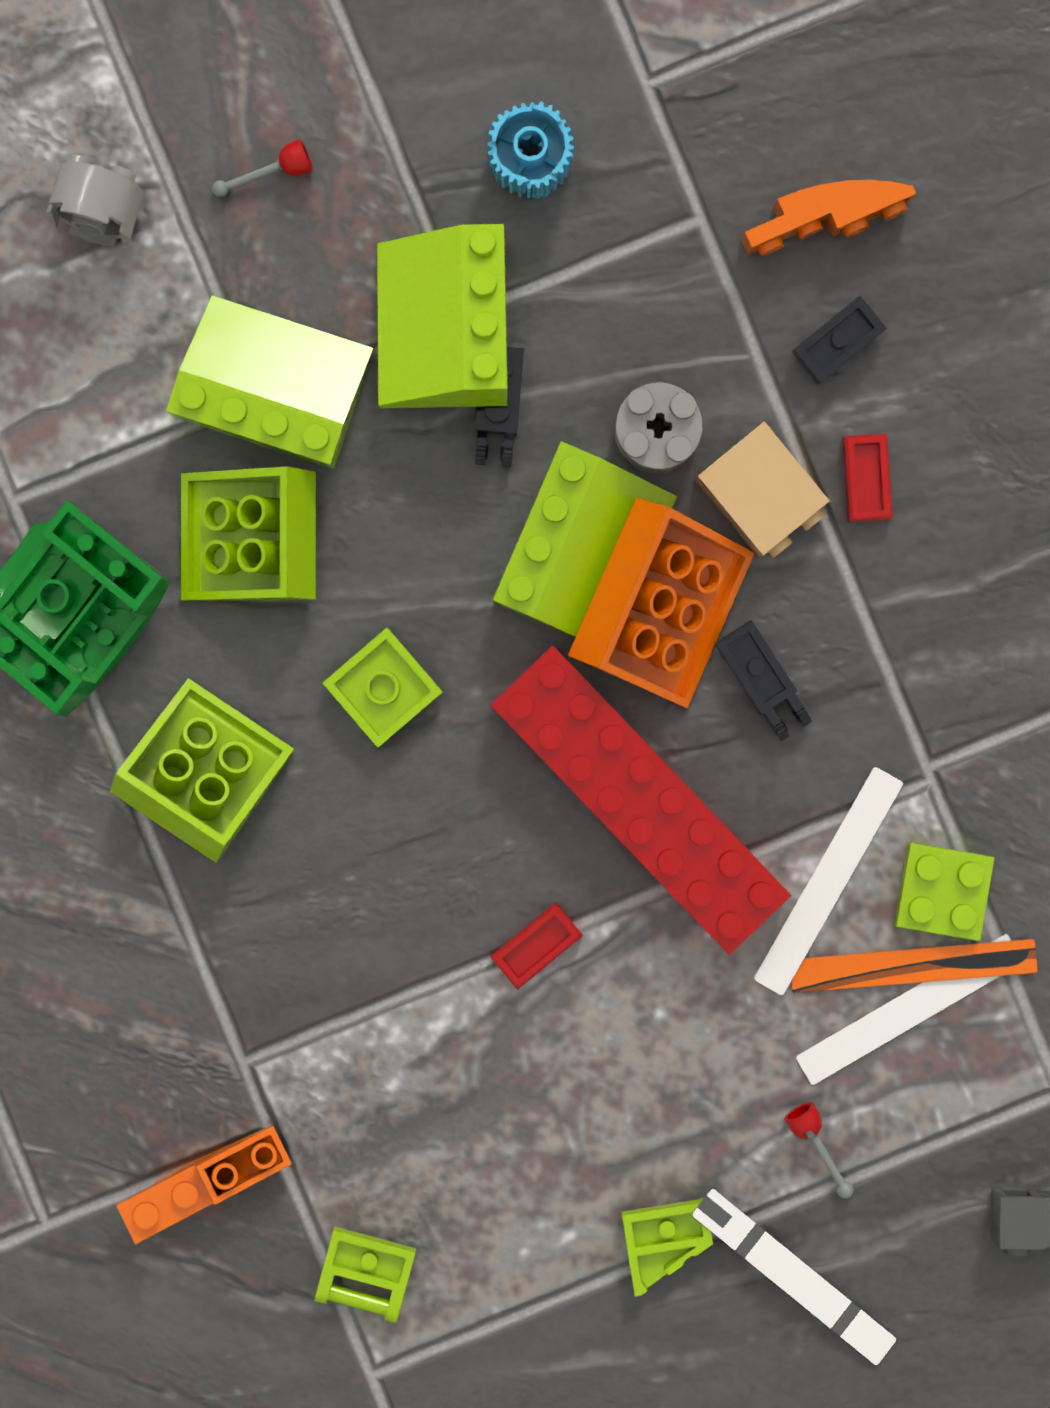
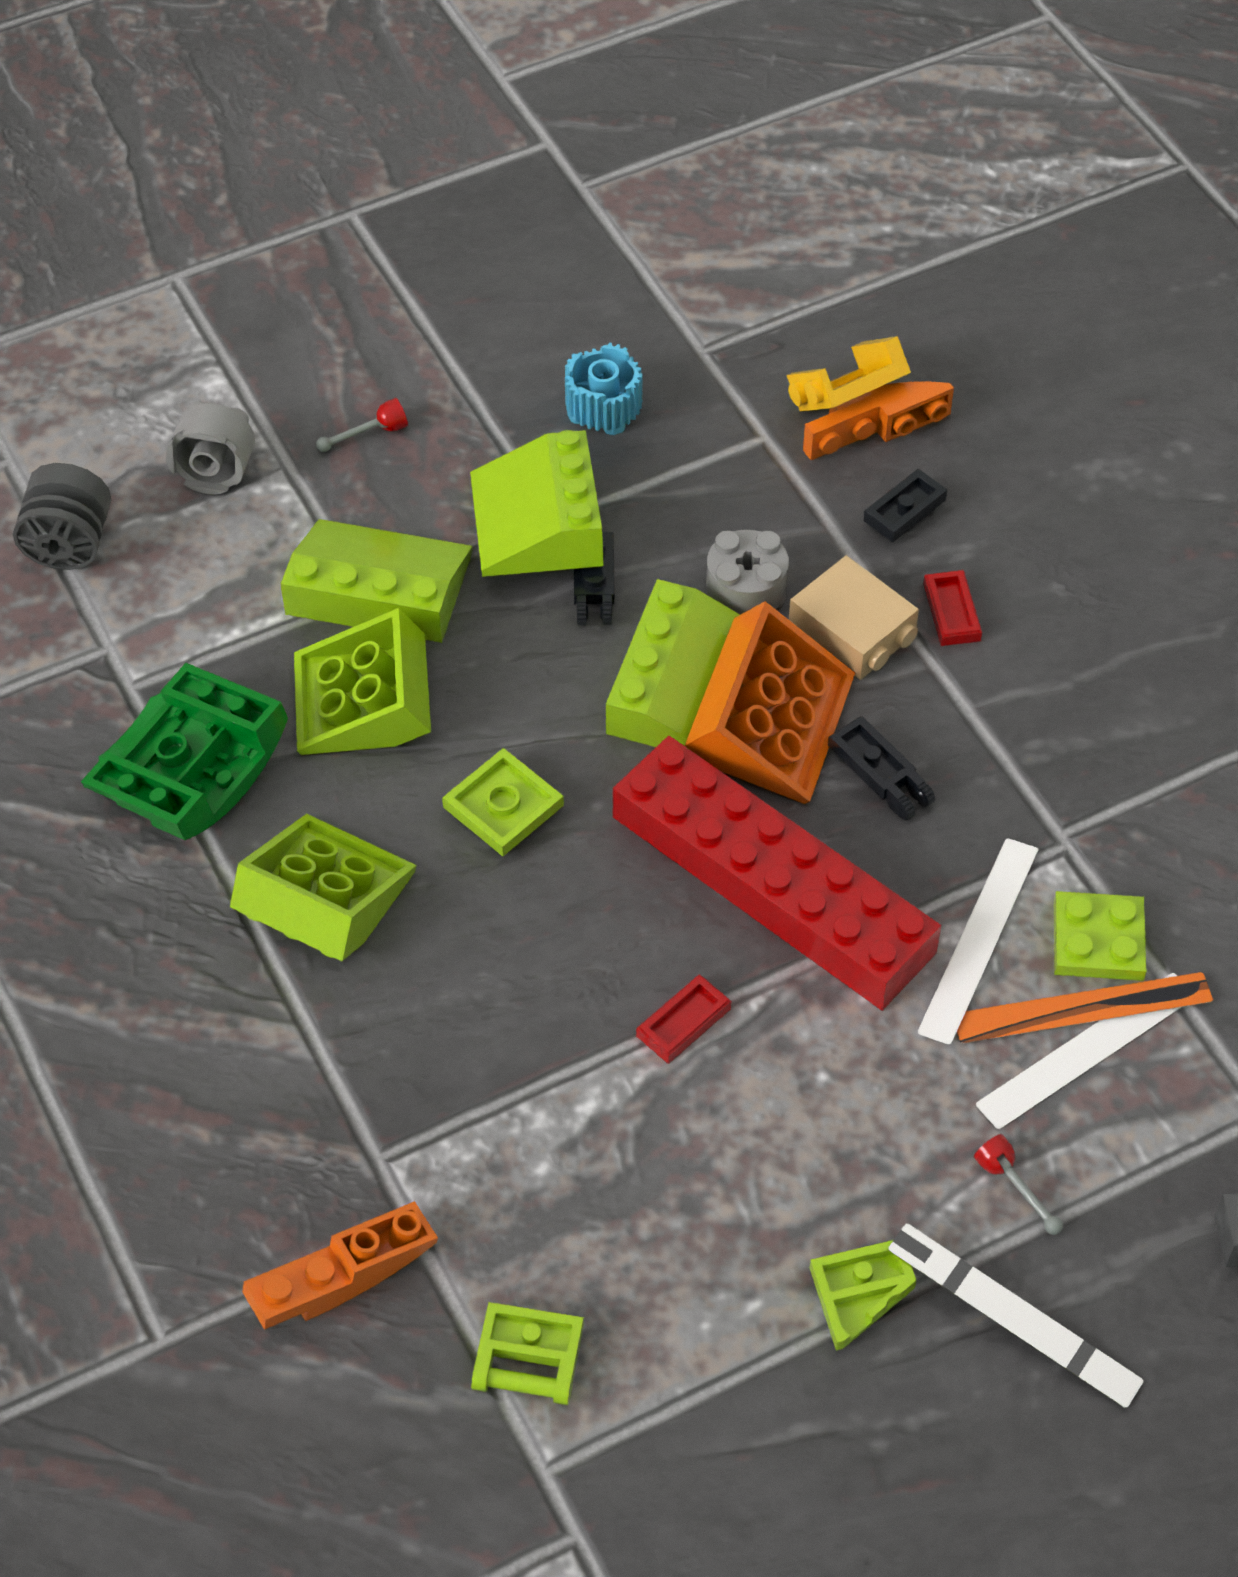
camera: 10 degrees left, 35 degrees down
(832, 150) = (878, 364): none -> yellow window

